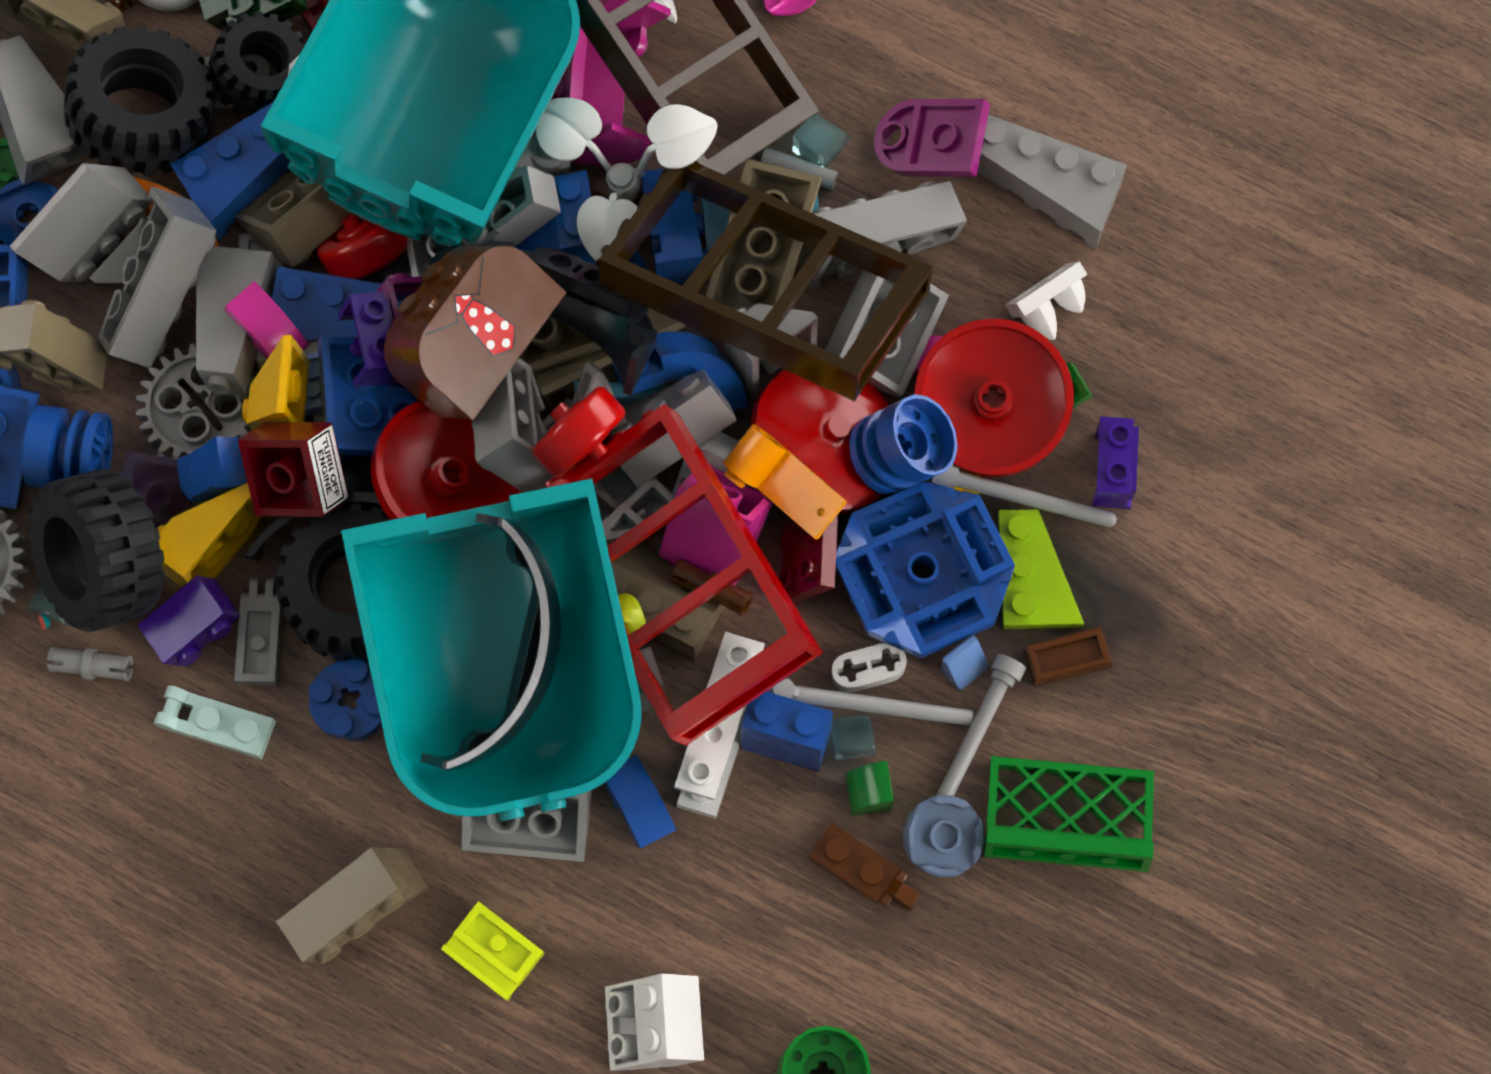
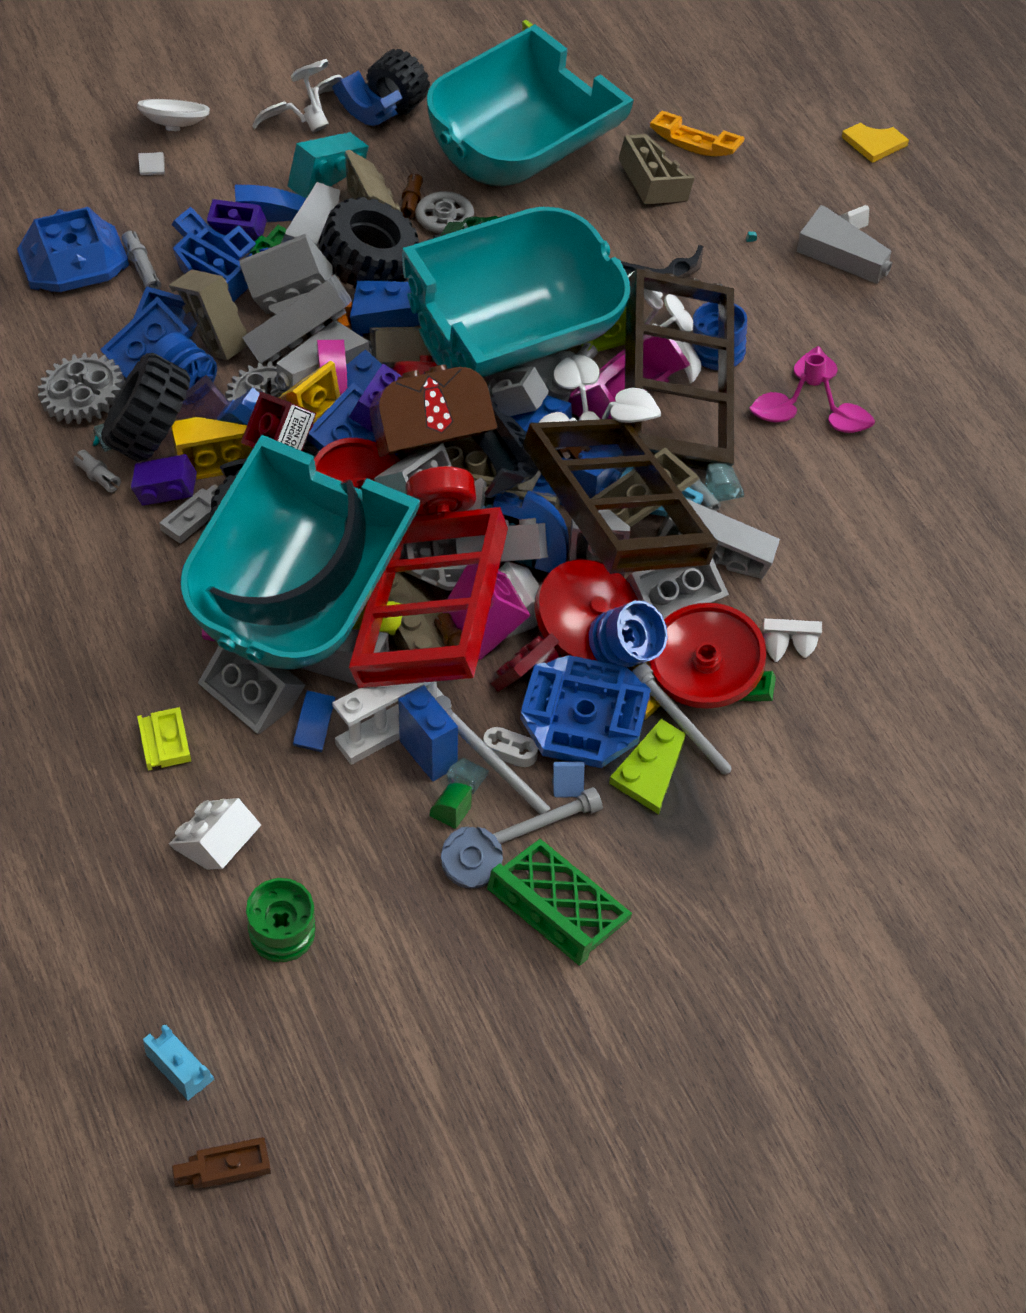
camera: 35 degrees right, 20 degrees down
(216, 723) = (132, 539): light aqua plate -> none
(351, 903) = (114, 660): dark tan wedge -> none
(784, 480) = (539, 599): light orange door -> none
(862, 869) = (409, 843): reddish brown hinge -> none
(936, 137) = (789, 513): magenta tile -> none
(1052, 176) = (845, 576): light grey wedge -> none
(1068, 656) = (635, 821): reddish brown tile -> none
(1116, 462) = (753, 738): dark purple window -> none

